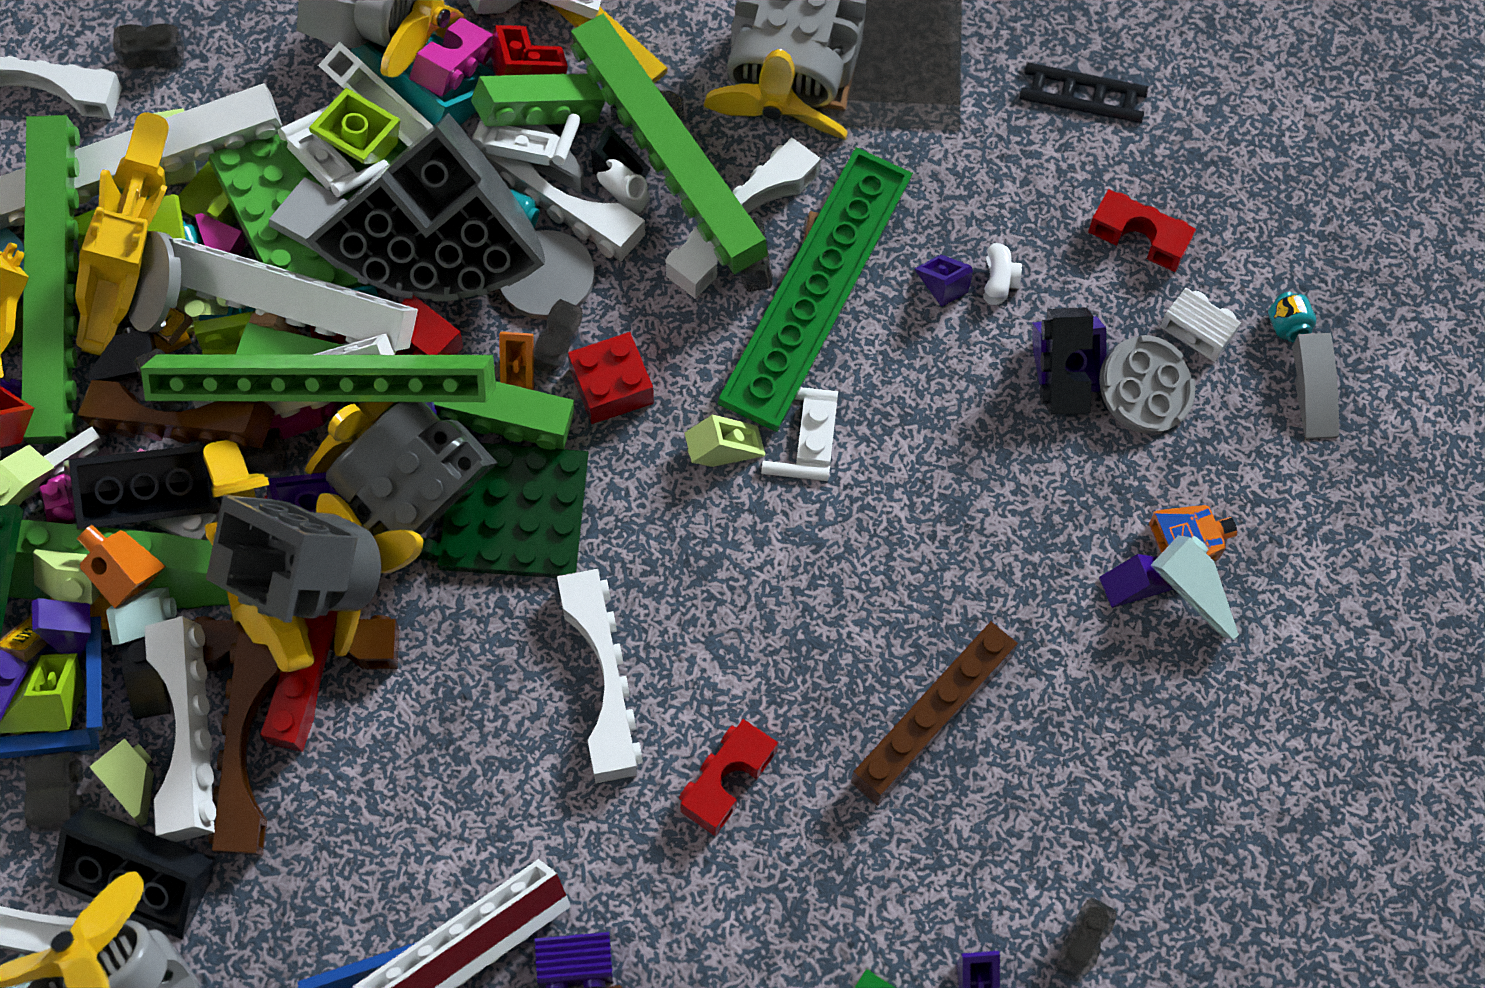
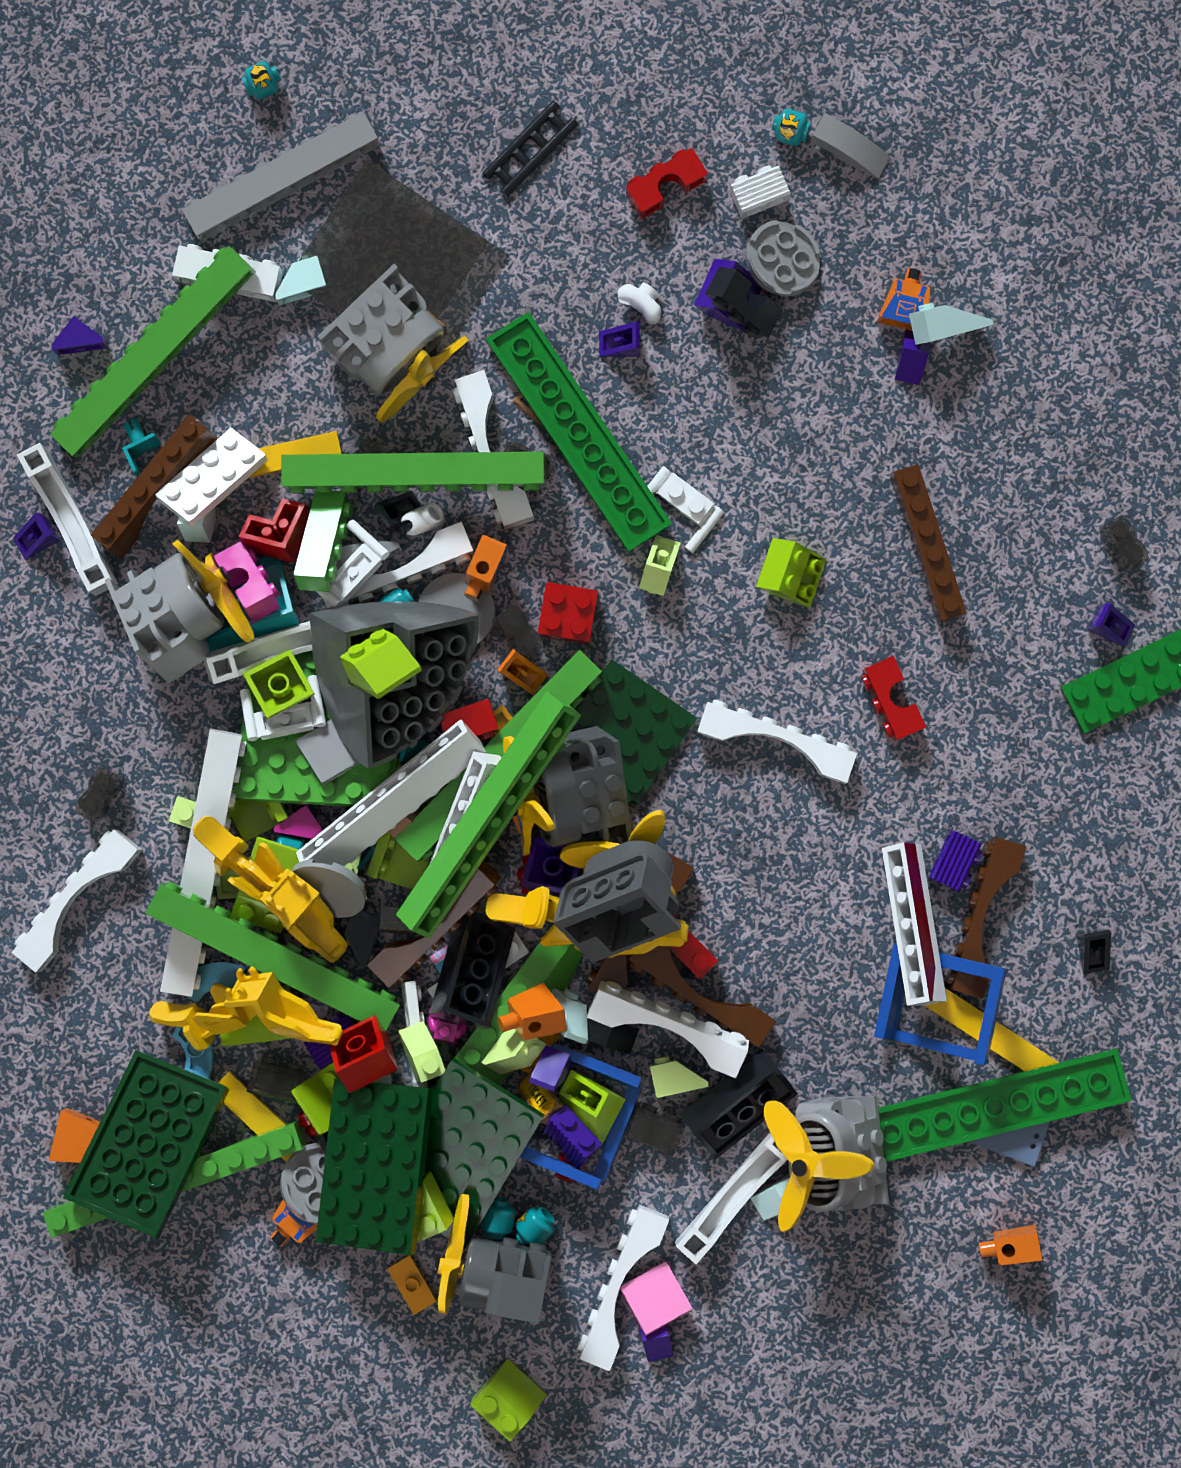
camera: 50 degrees left, 20 degrees up
(424, 177) = (379, 663): none -> lime slope
(608, 265) = (484, 567): none -> orange torso
(805, 584) = (791, 572): none -> lime slope

